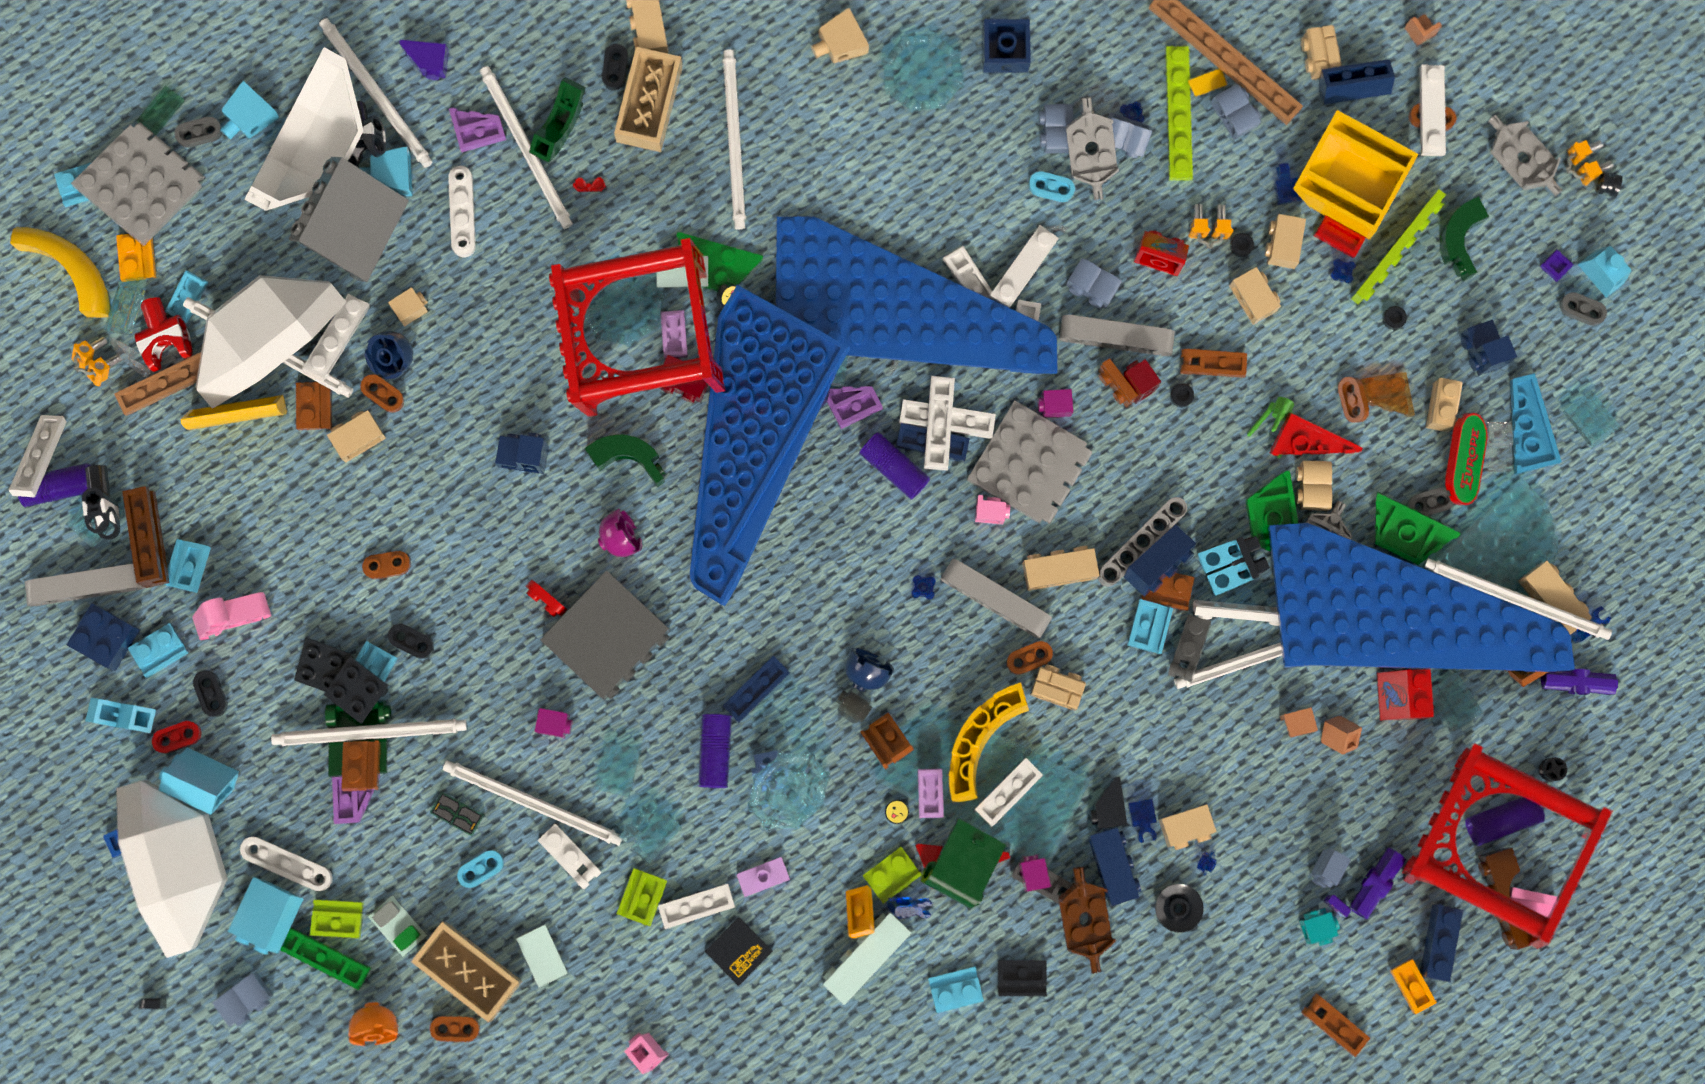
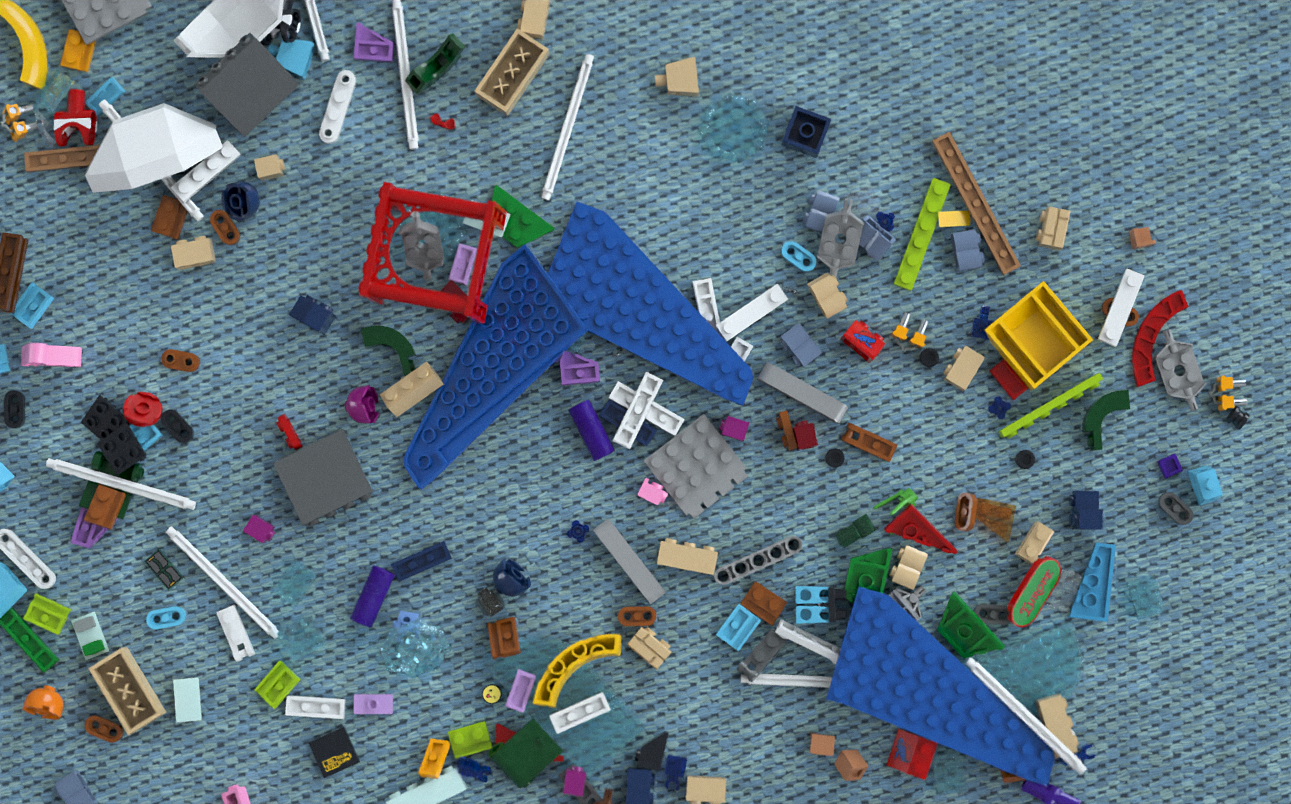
camera: 30 degrees right, 5 degrees up
(234, 412) = (108, 201): yellow slope -> none
(363, 636) = (142, 409): none -> red tile
(615, 68) = (497, 36): black plate -> none
(625, 339) = (419, 255): none -> light grey plate
(670, 495) = (411, 389): none -> tan brick
(725, 292) = (513, 246): tile -> none
(1102, 216) = (827, 295): none -> tan brick
(1160, 561) = (765, 581): dark blue brick -> none
(1241, 464) = (858, 529): none -> clear green piece
(1255, 295) = (922, 401): tan brick -> none
(1356, 81) = (1070, 262): dark blue brick -> none
(1472, 131) = (1148, 333): none -> red tile

